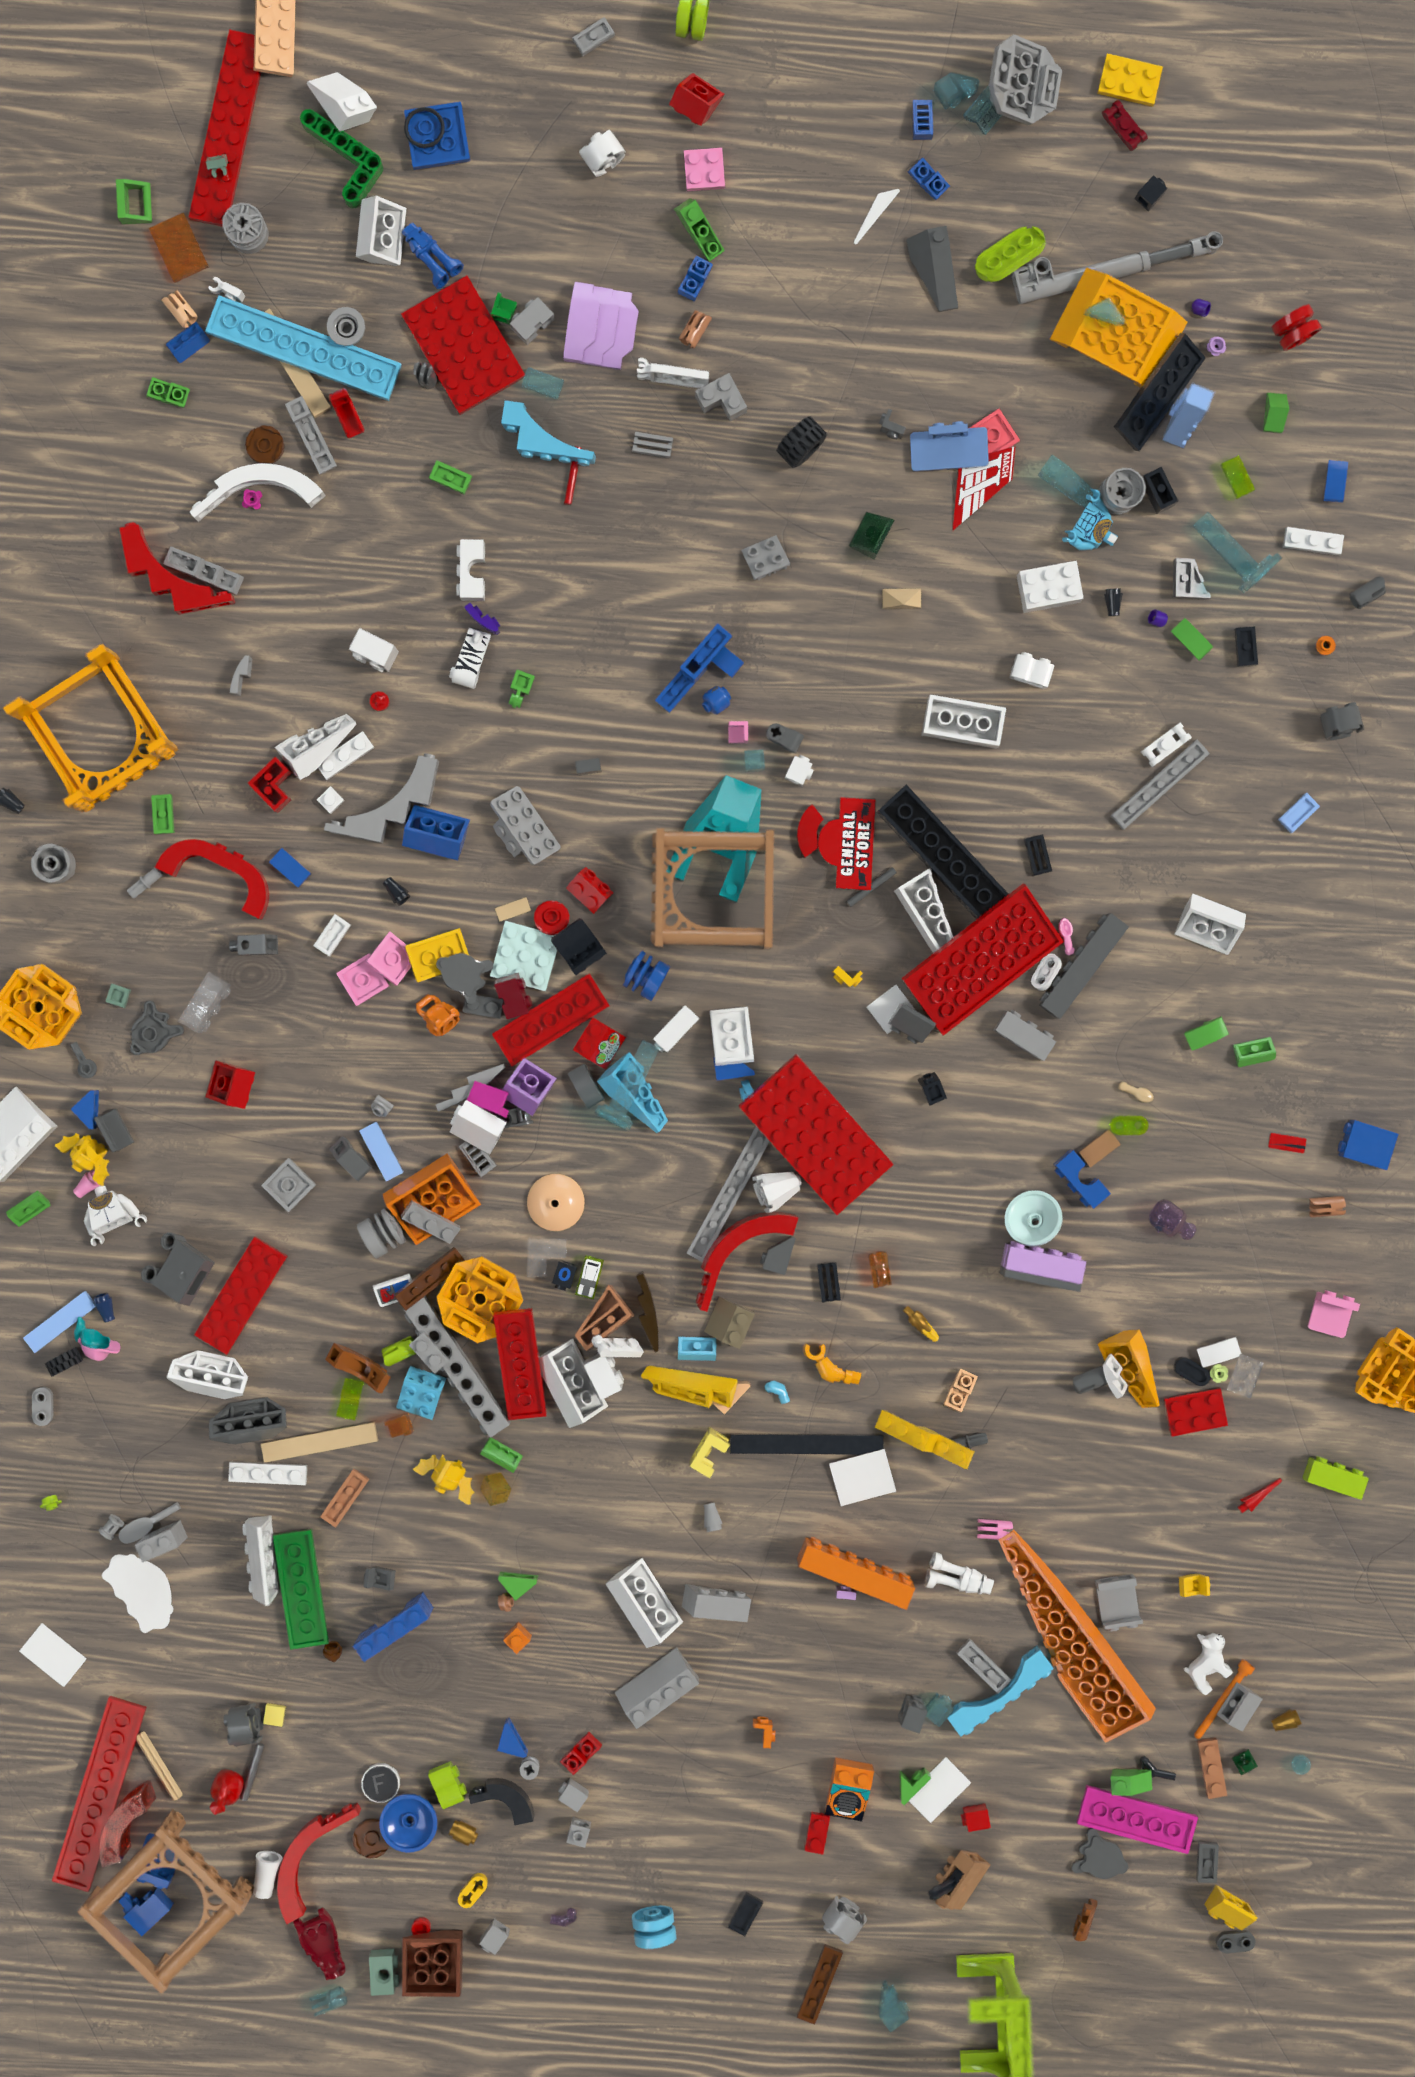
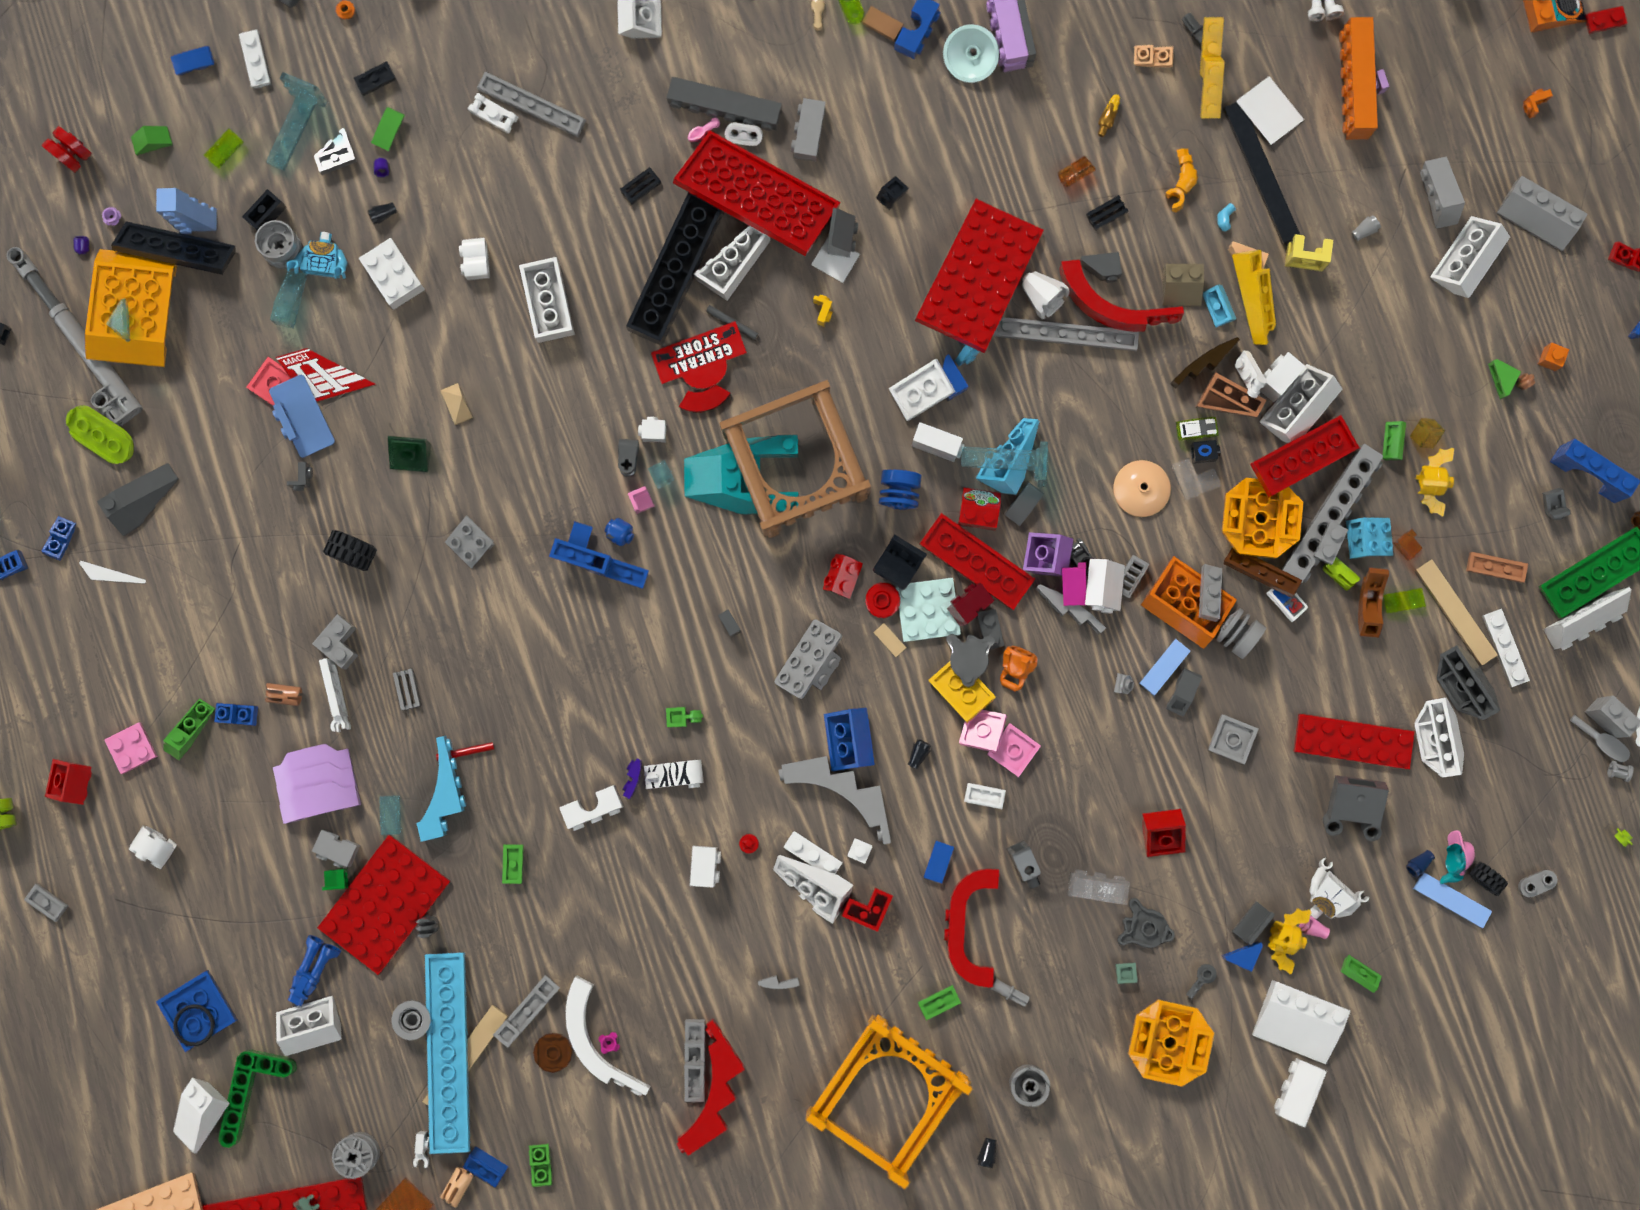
camera: 110 degrees left, 5 degrees down
(346, 413) = (492, 986): red animal -> none

